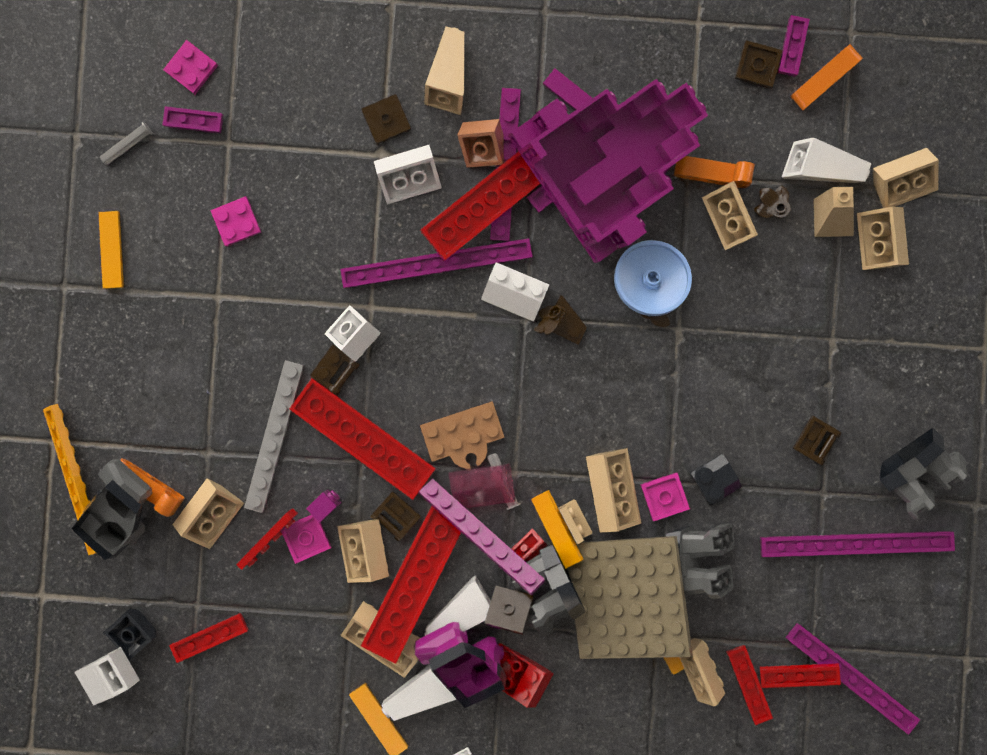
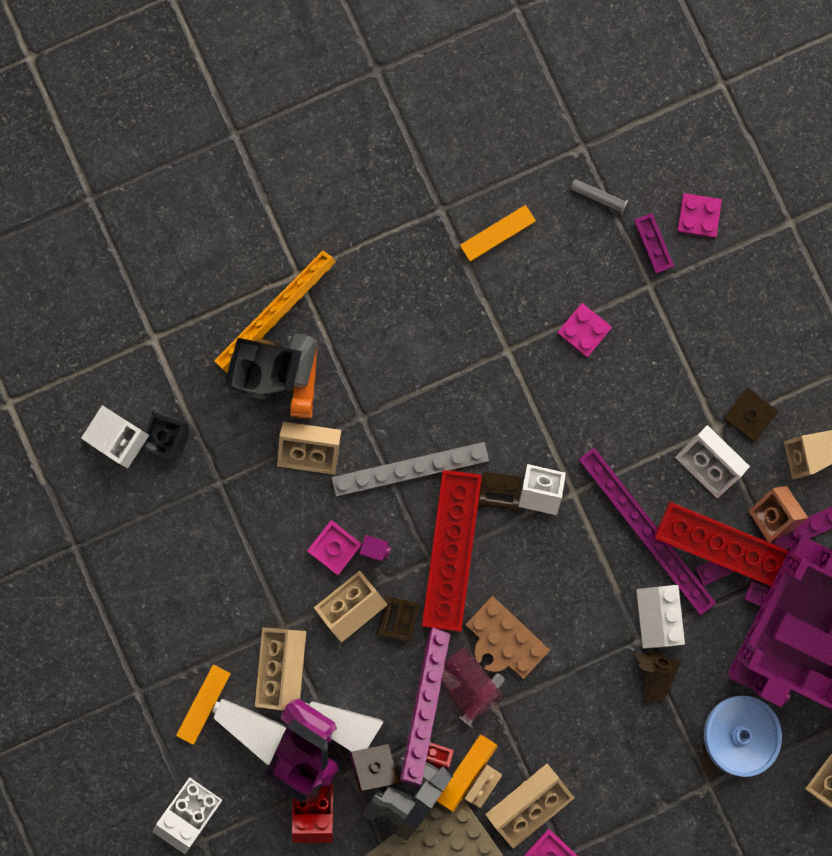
camera: 55 degrees right, 5 degrees down
(208, 637) = (197, 509): red plate -> none
(273, 534) = (308, 512): red plate -> none
(411, 587) = (345, 668): red plate -> none

